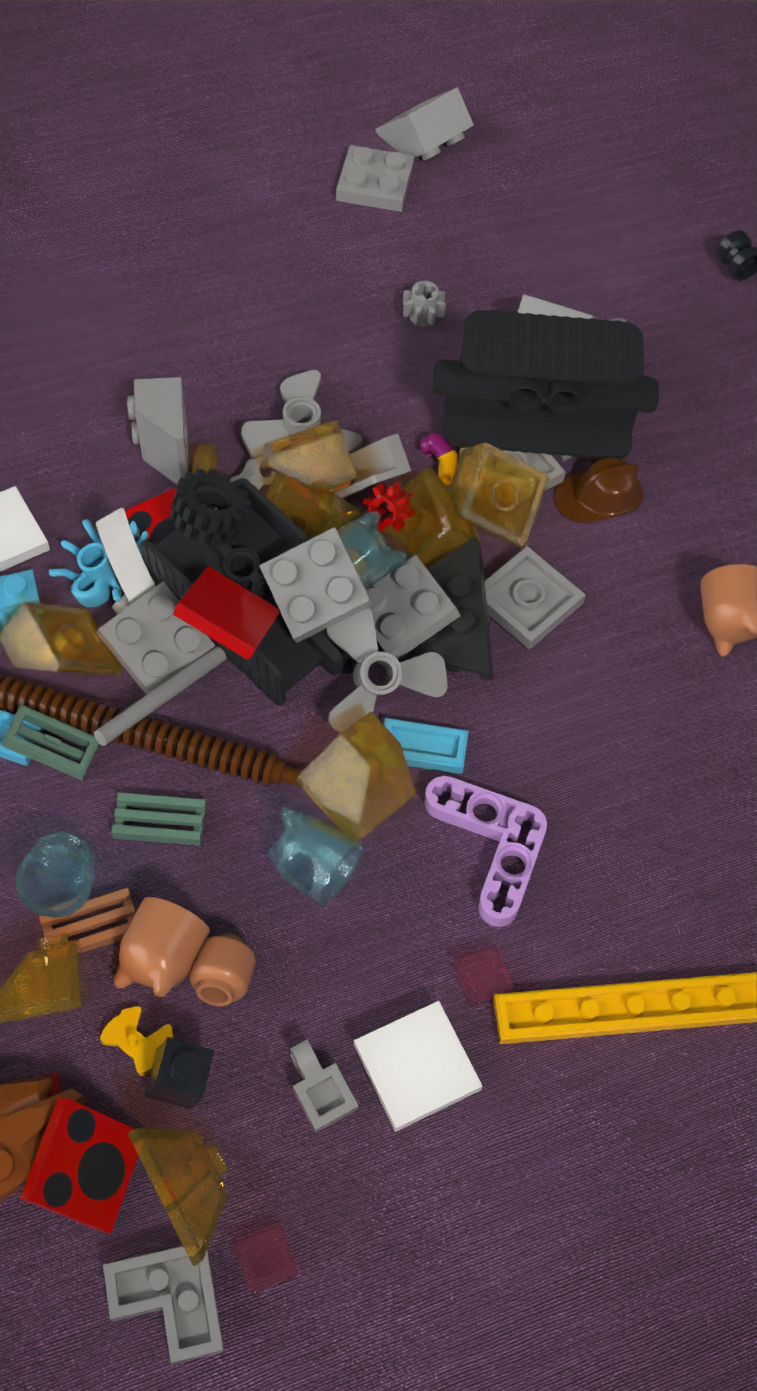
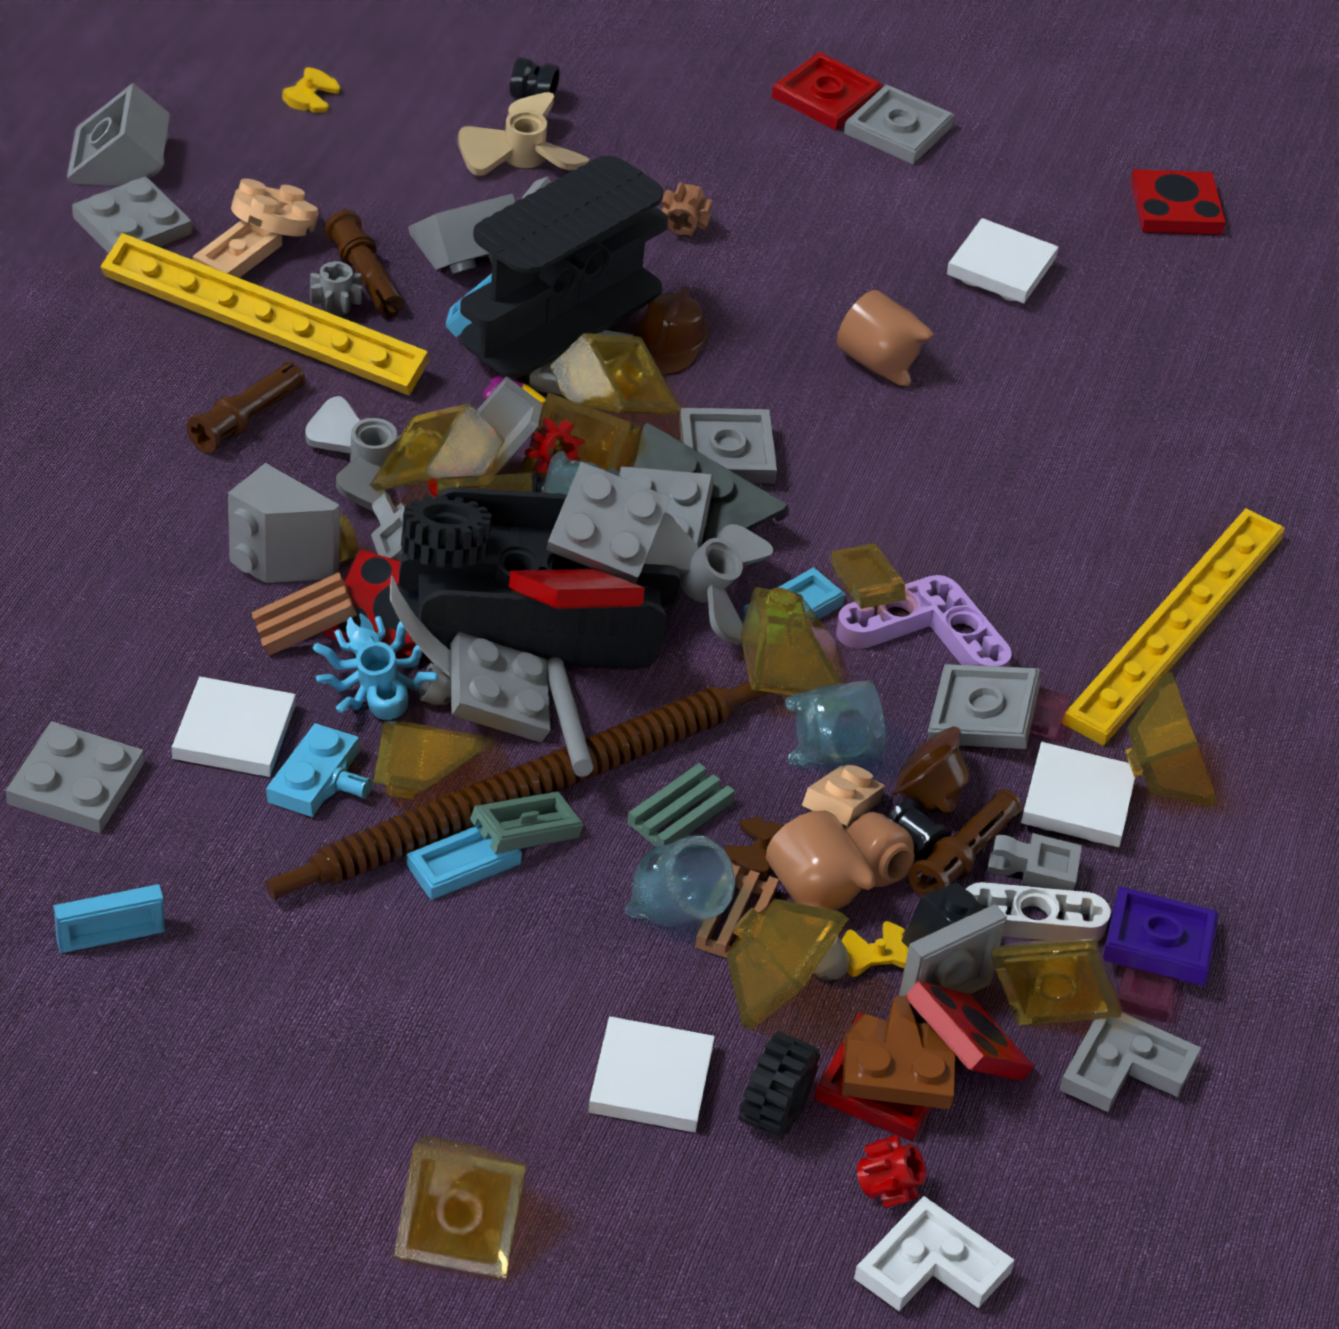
camera: 50 degrees left, 15 degrees down
(93, 1015) = (834, 963): none -> light grey hinge
(122, 491) = (302, 608): none -> nougat tile
(130, 1102) = (956, 954): none -> light grey tile
(184, 893) = (754, 856): none -> reddish brown piece
(238, 1099) = (1052, 901): none -> white beam
(250, 910) = (844, 792): none -> light nougat plate
(259, 338) = (233, 414): none -> reddish brown pin
(268, 1025) = (955, 855): none -> reddish brown pin
(270, 982) = (921, 828): none -> black bush
(324, 1232) = (1161, 936): none -> dark purple tile
(331, 955) = (935, 773): none -> reddish brown piece
(363, 294) = (266, 314): none -> yellow plate
(402, 238) = (239, 248): none -> light nougat plate
(443, 936) = (987, 704): none -> light grey tile
(455, 226) = (280, 210): none -> light nougat plate
(472, 290) = (358, 252): none -> reddish brown pin
(490, 769) = (868, 575): none -> clear yellow tile
(518, 1098) = (1167, 747): none -> clear yellow slope
(581, 168) = (303, 94): none -> yellow piece
(675, 287) = (520, 143): none -> tan piece
(722, 412) = (686, 209): none -> nougat gear

